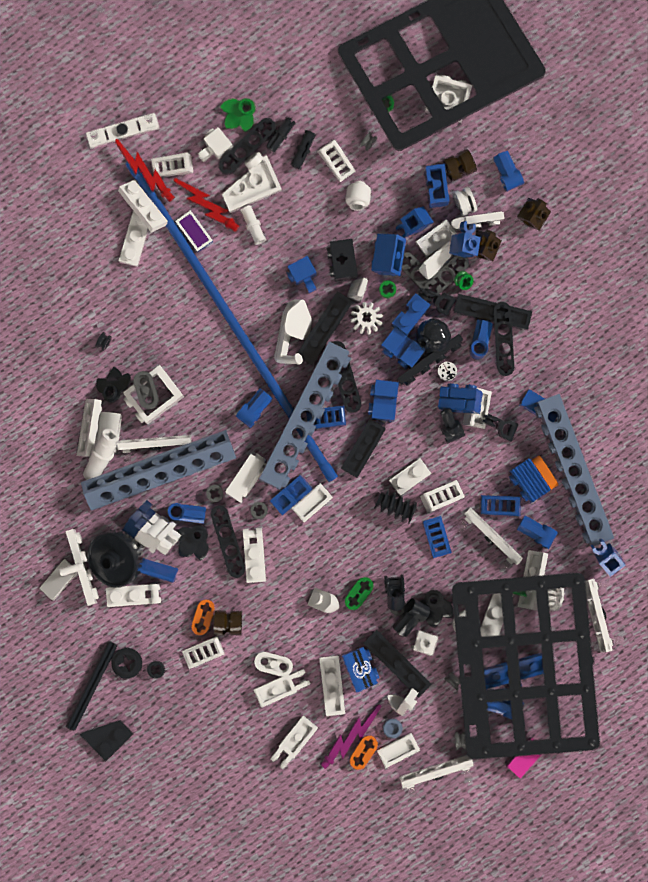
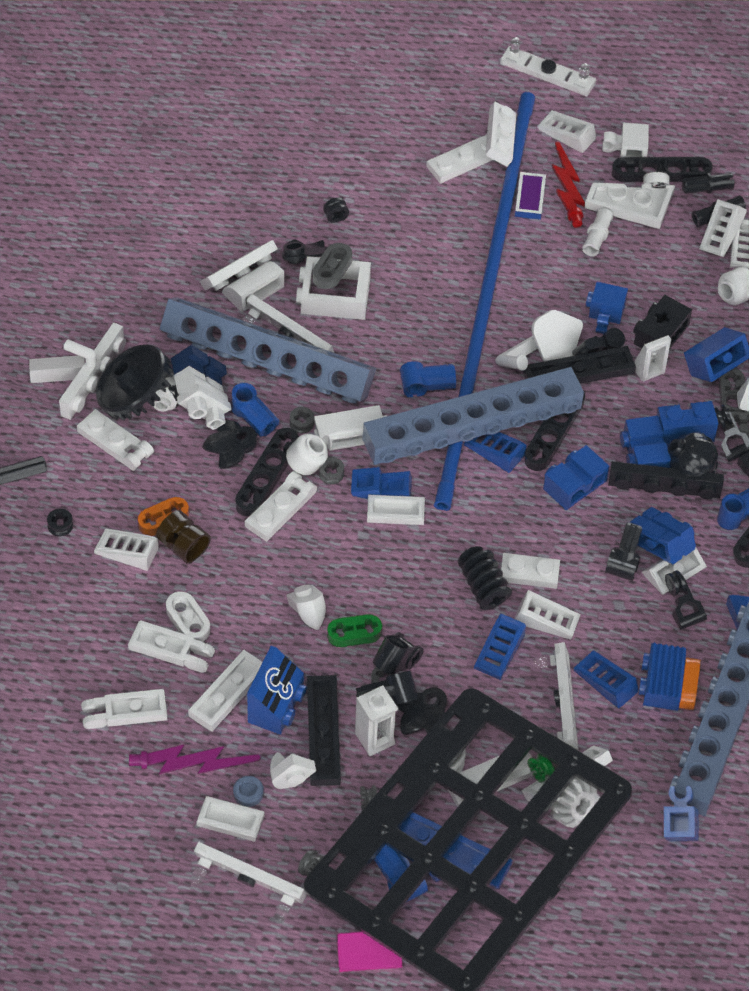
camera: 45 degrees right, 30 degrees down
(101, 454) = (226, 281): white piece -> none
(118, 658) = (34, 482): black gear -> none
(151, 180) = (536, 142): red piece -> none
(158, 570) = (163, 438): blue slope -> none
(236, 115) = (683, 138): green plate -> none
(242, 516) = (307, 454): none -> white head
(315, 151) = (718, 215): none -> white slope
(323, 292) = (610, 339): none -> black piece
(363, 448) = (505, 503): black plate -> none
(367, 755) = (189, 785): orange beam -> none
(373, 319) = (634, 392): white gear -> none
(388, 295) = (688, 383): green bush -> none
(447, 371) = (676, 506): white tile -> none
(539, 533) = (623, 738): blue piece -> none
(599, 616) = (610, 877): white piece -> none

